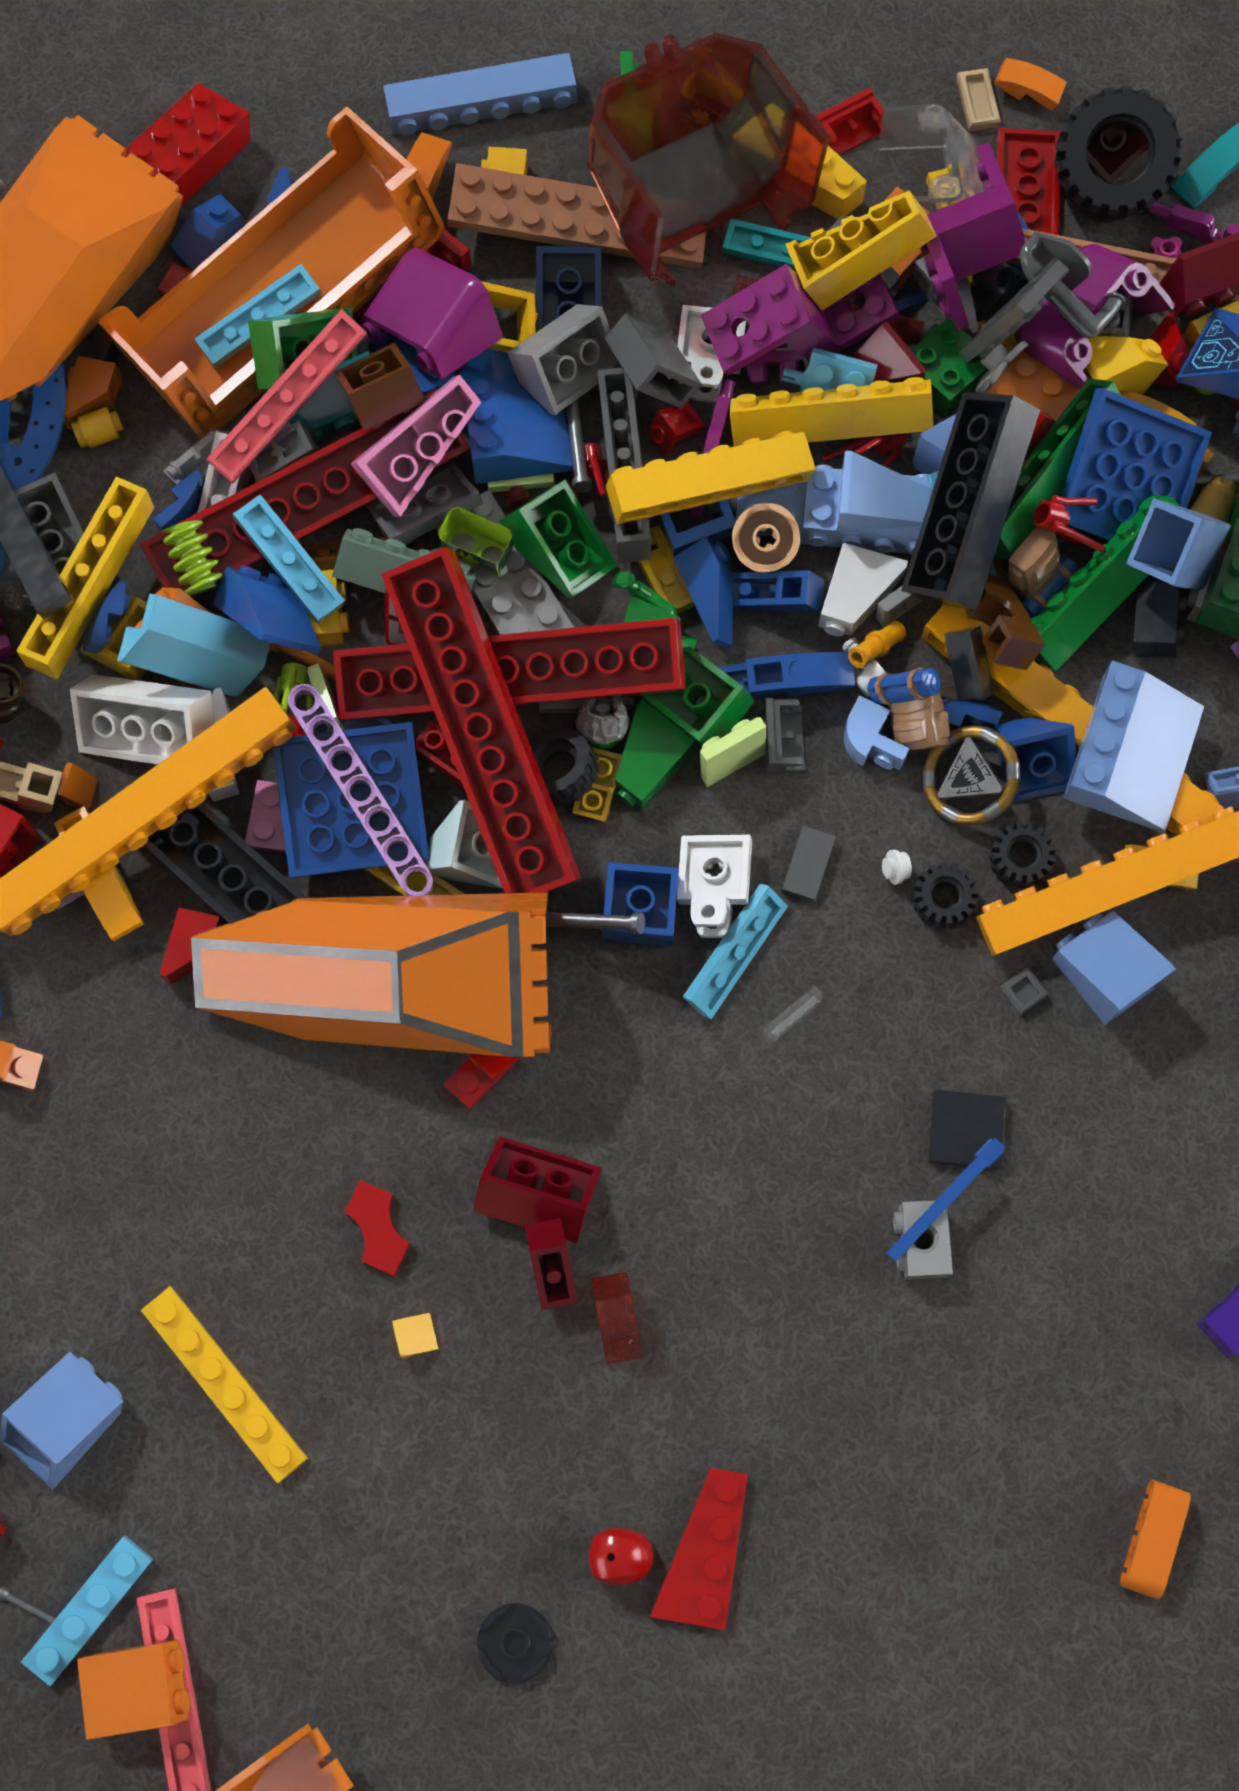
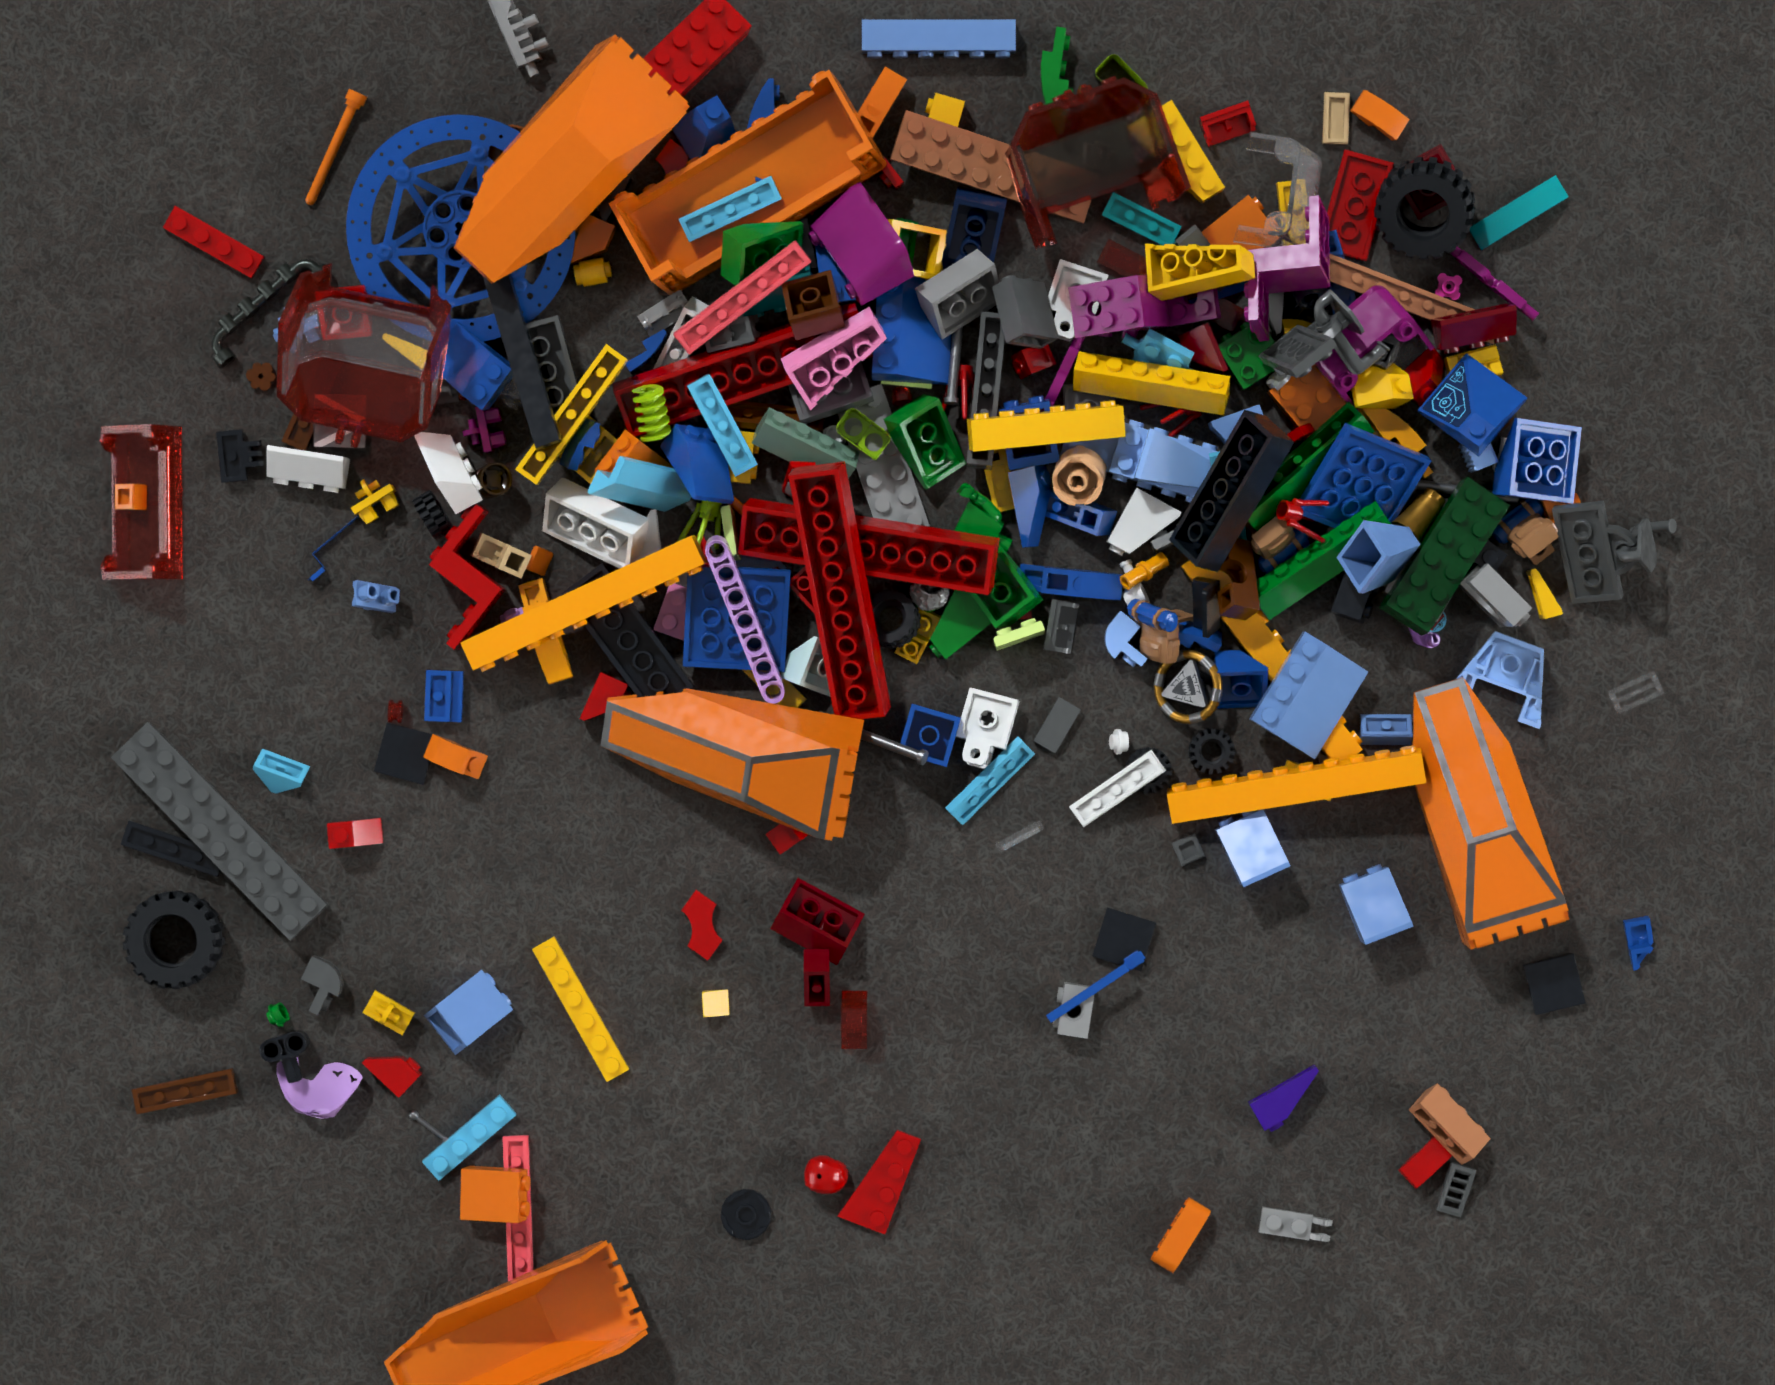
camera: 15 degrees right, 15 degrees up
(910, 924) = (1117, 788): none -> white tile

